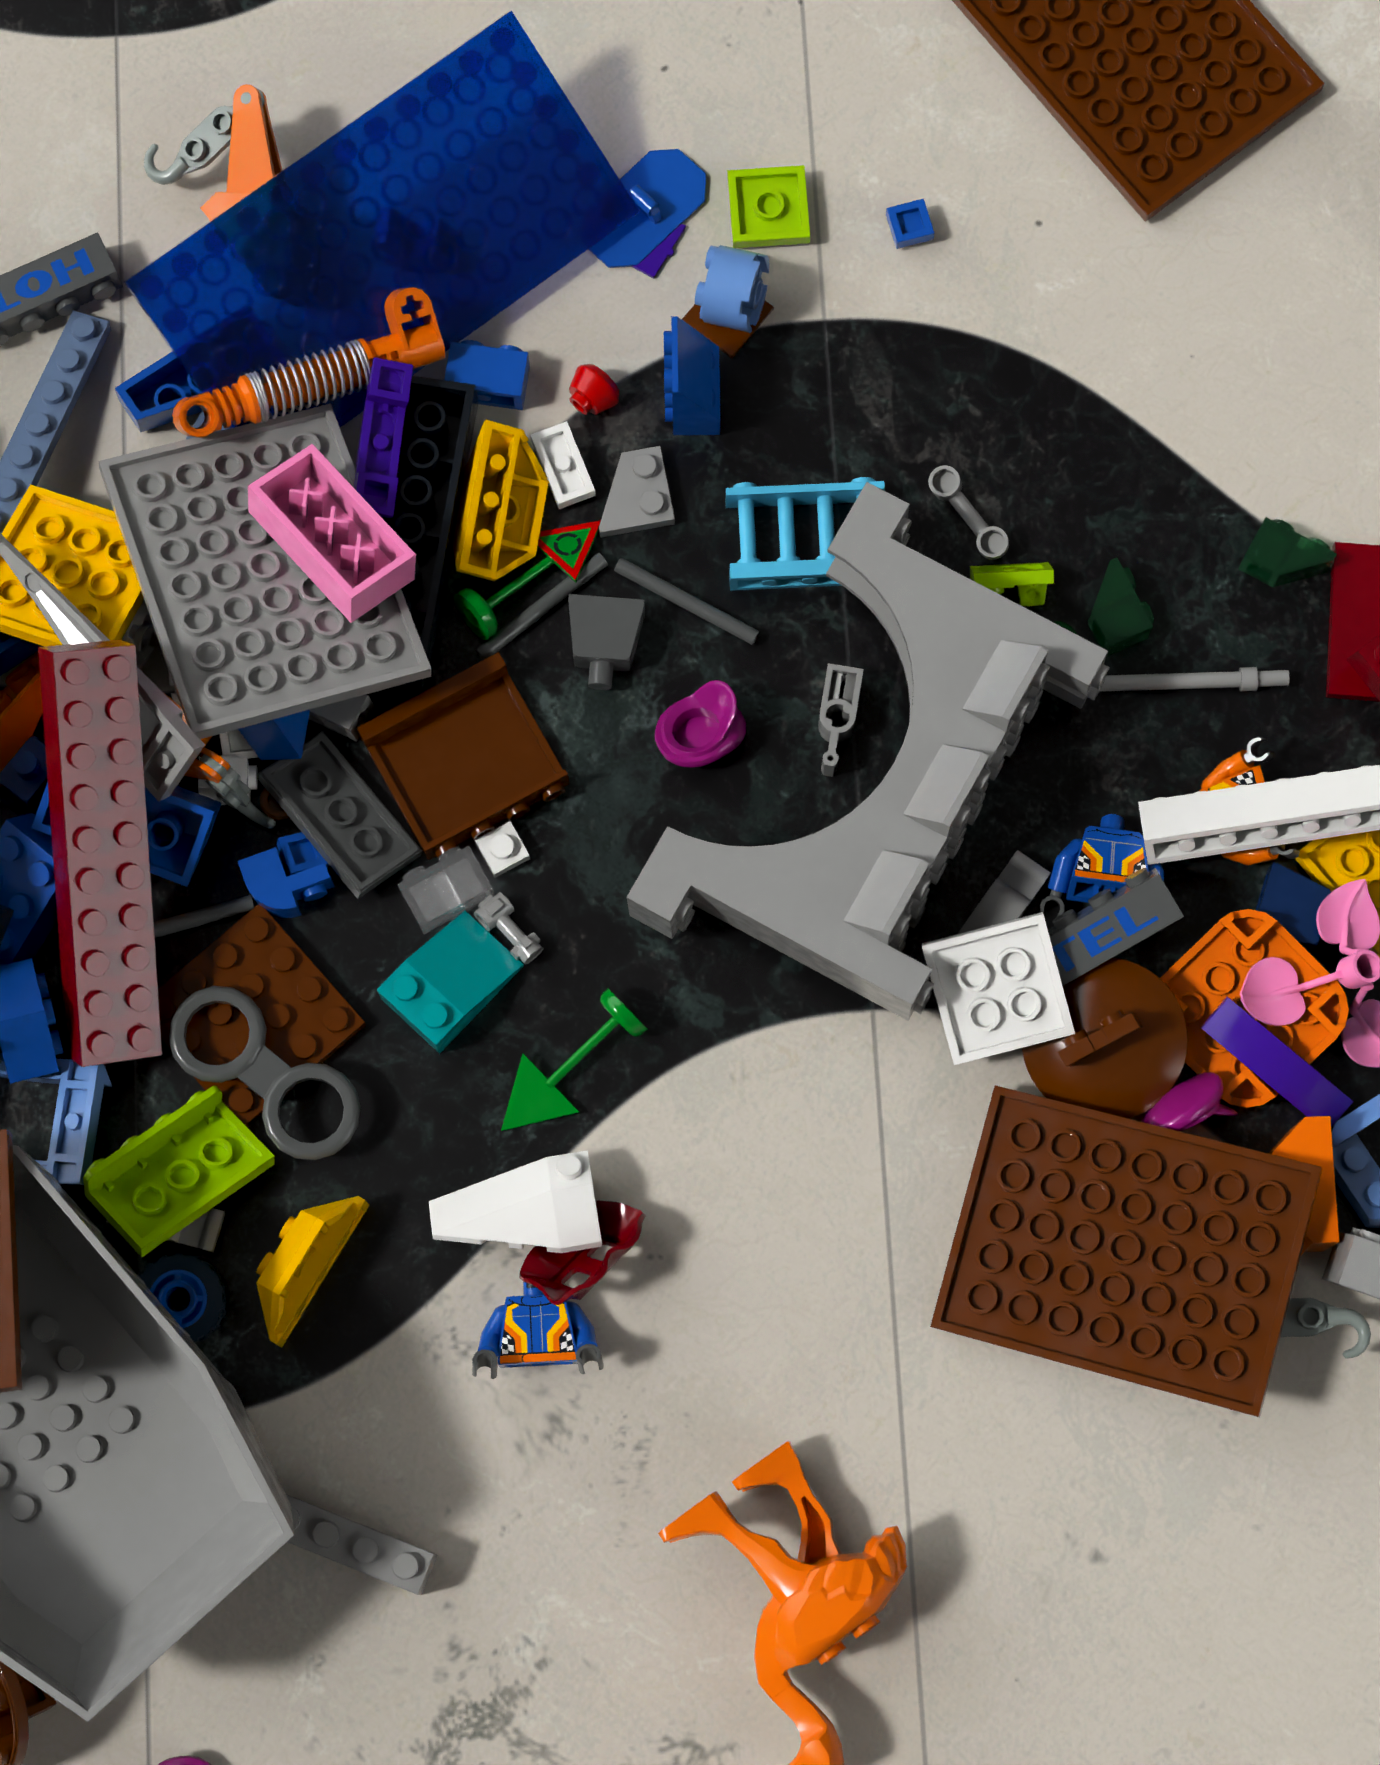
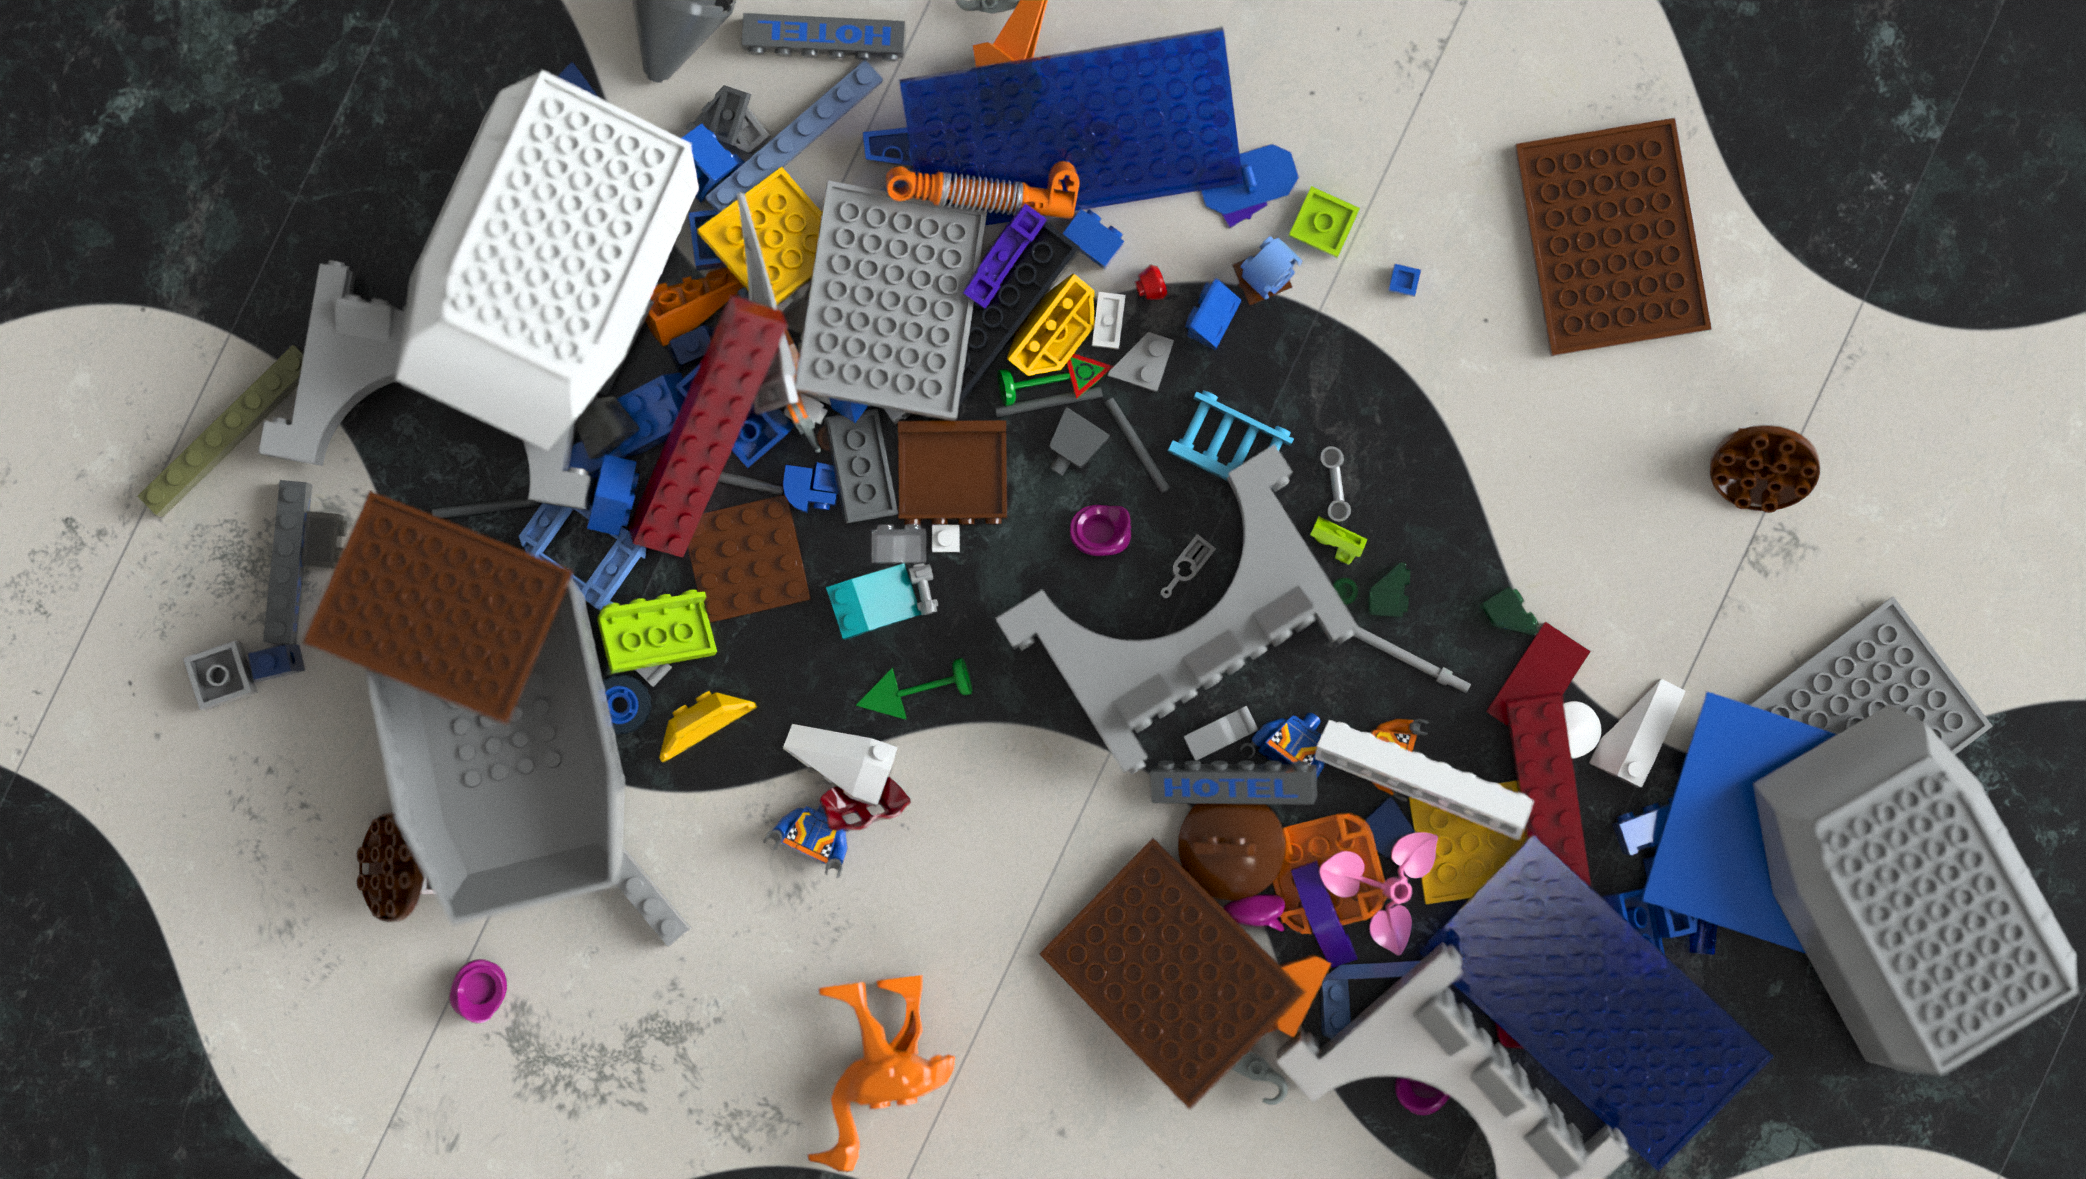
camera: 30 degrees right, 10 degrees up
(264, 1073) = (736, 599): dark grey bar -> none
(331, 533) = (941, 304): bright pink brick -> none
(998, 988) = (1183, 785): white plate -> none

